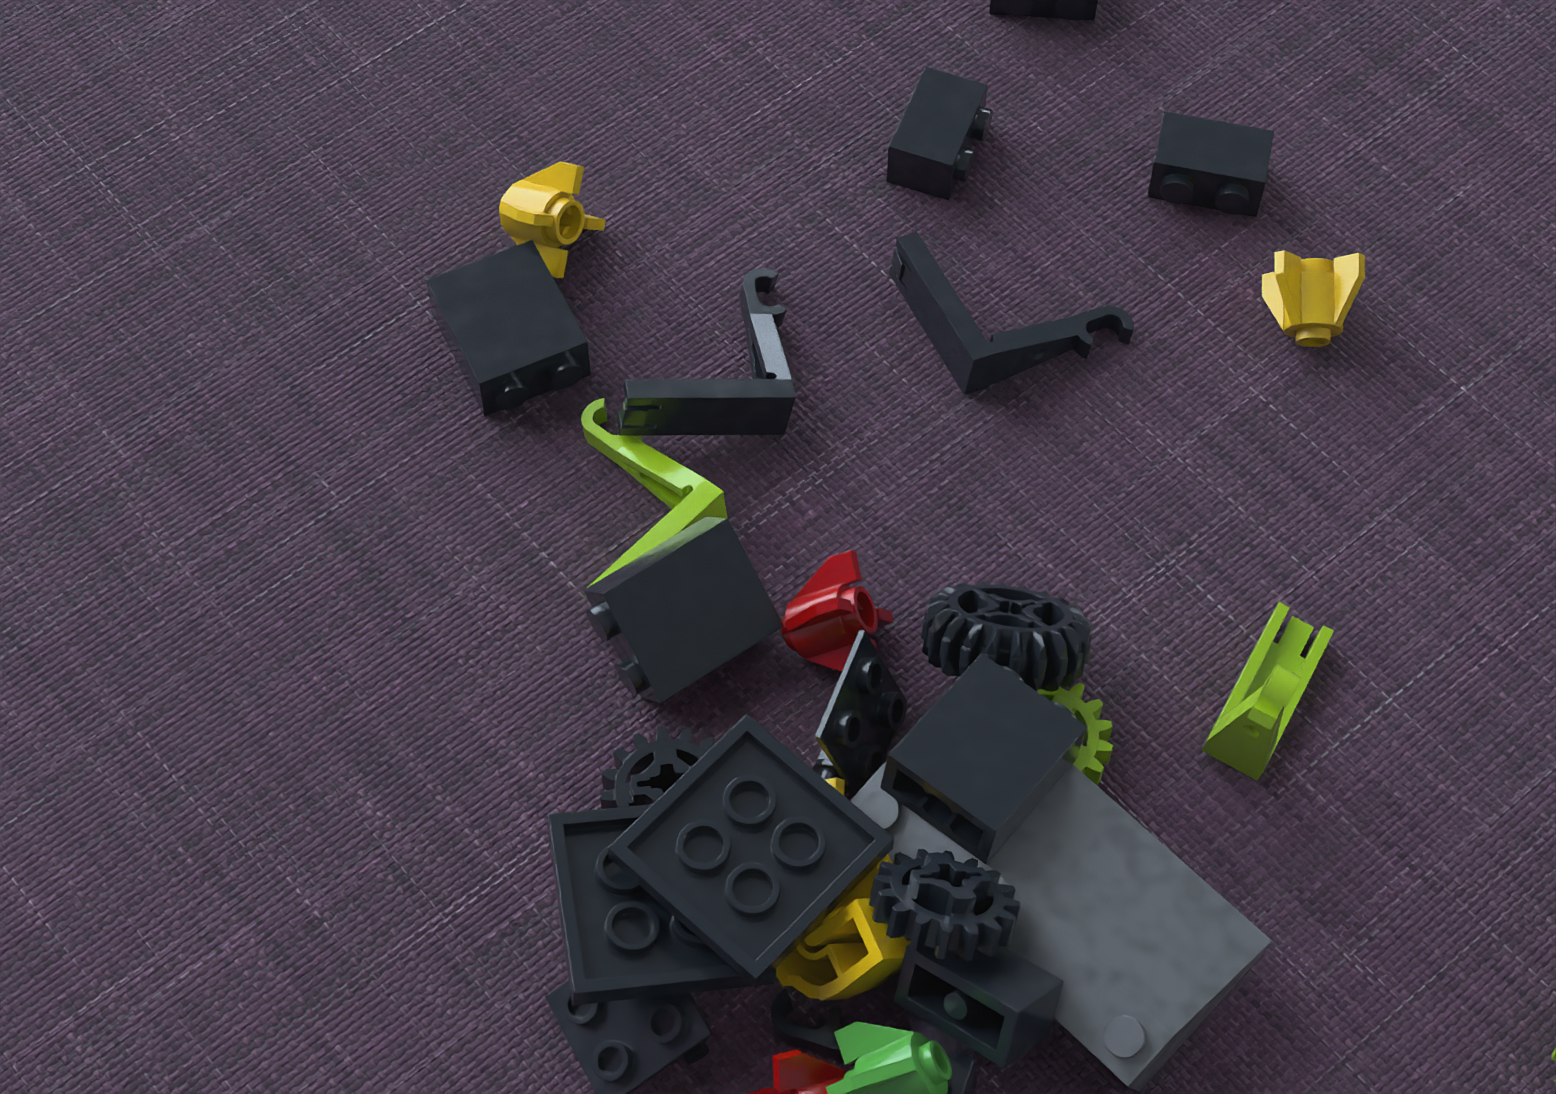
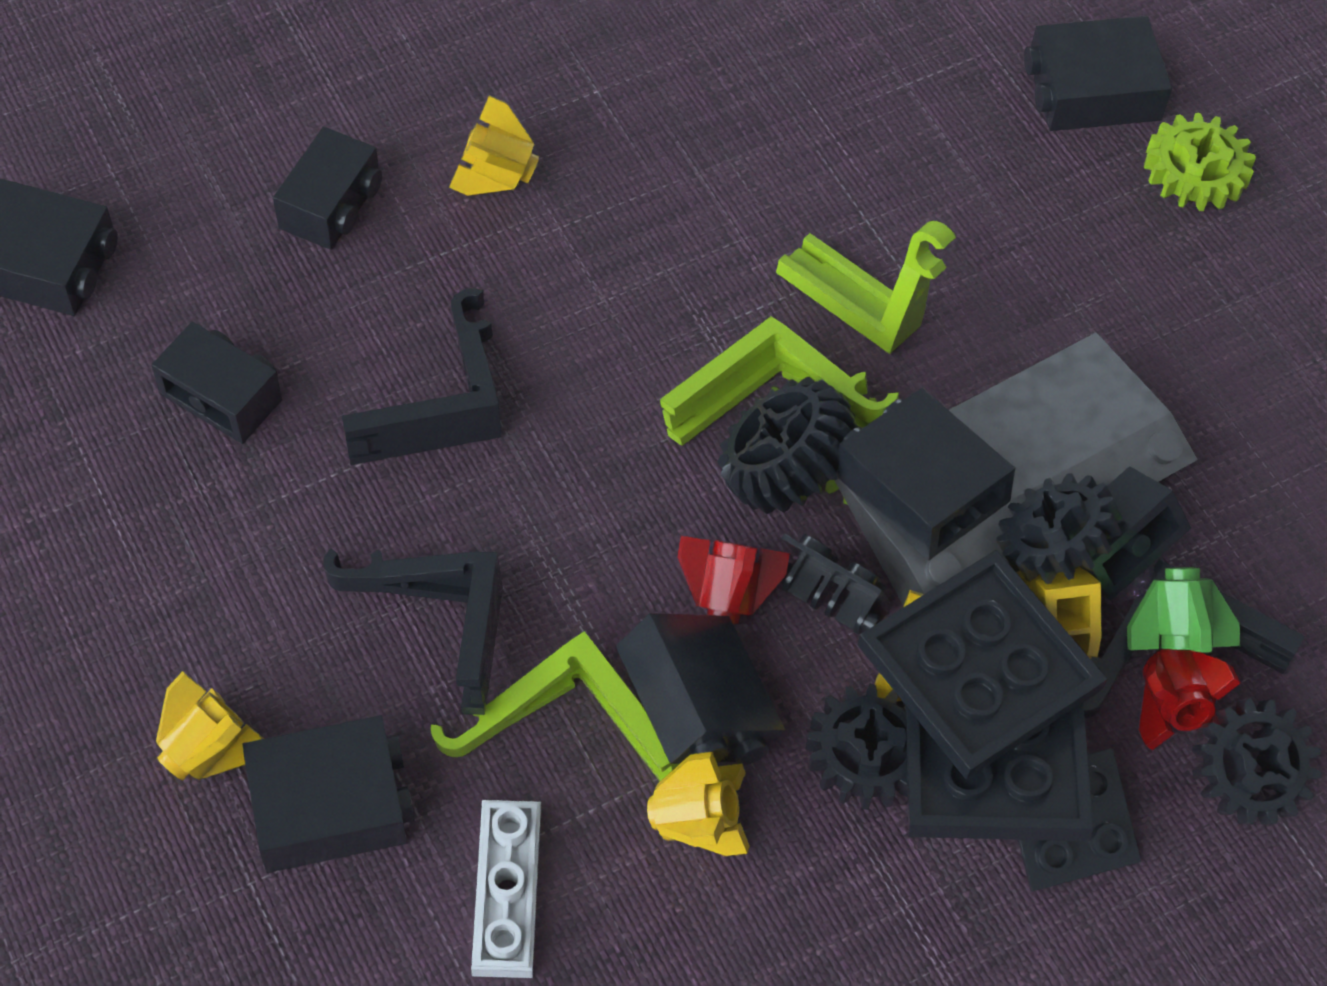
camera: 80 degrees left, 0 degrees up
(420, 507) = (506, 917): none -> white tile
(555, 642) = (700, 805): none -> yellow brick
(1107, 590) = (748, 366): none -> lime hinge

